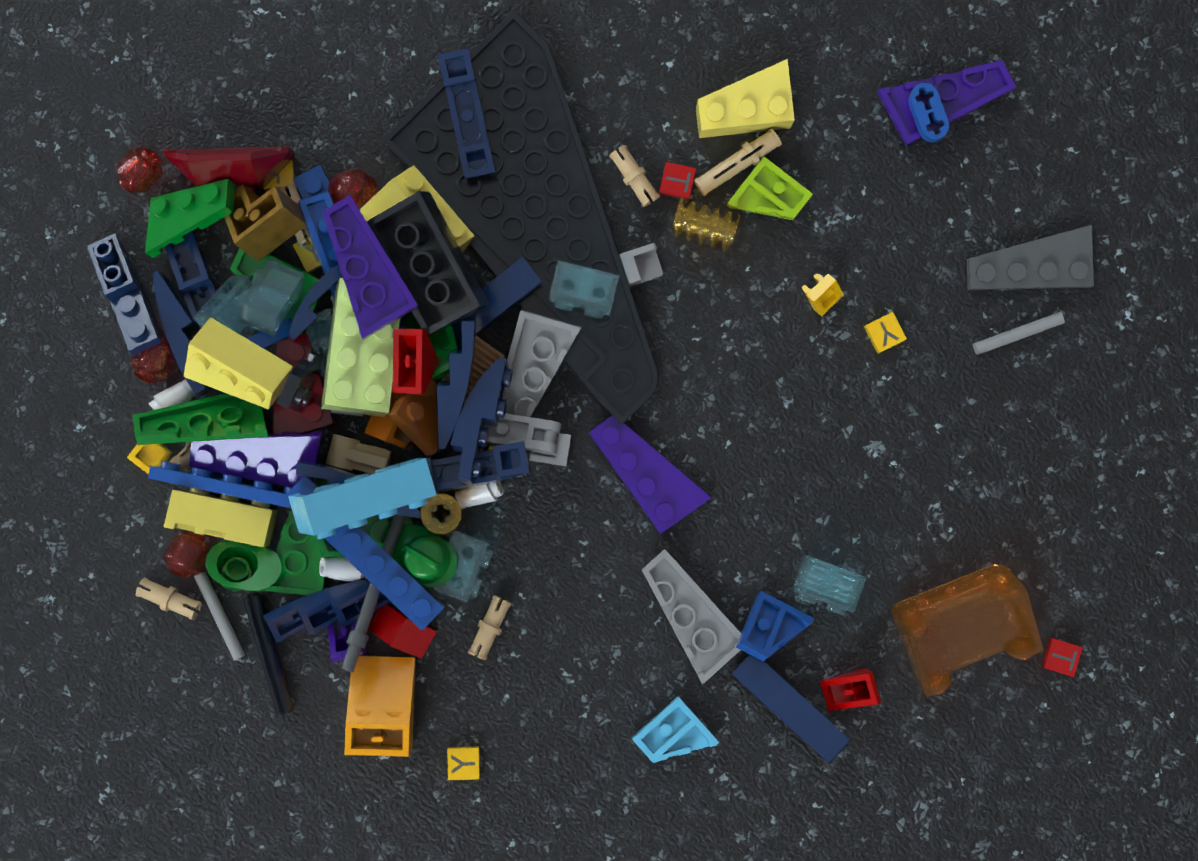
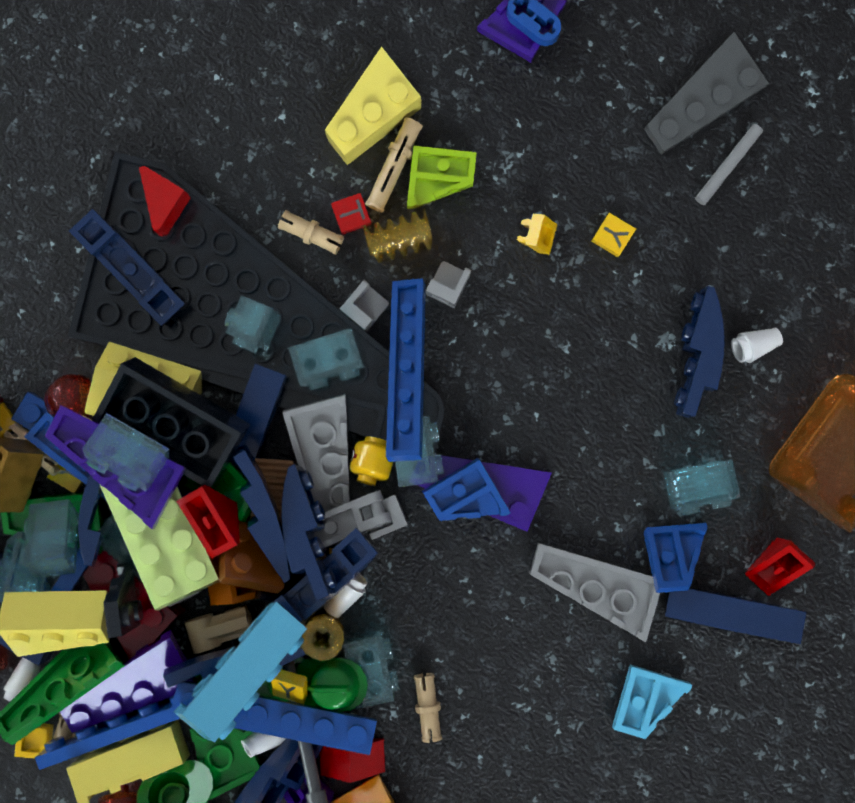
camera: 25 degrees left, 0 degrees up
(380, 265) = (125, 453): none -> clear light blue brick
(391, 536) = (290, 686): none -> yellow tile
(530, 75) = (163, 200): none -> red slope
(540, 223) = (252, 324): none -> clear light blue brick
(568, 396) = (370, 461): none -> yellow head
(609, 409) = (422, 470): none -> clear light blue brick
(629, 470) = (465, 494): none -> blue wing
(643, 337) = (406, 371): none -> blue plate
(722, 289) = (448, 284): none -> light grey panel
(906, 466) = (706, 341): none -> dark blue slope
(944, 495) = (755, 344): none -> white cone

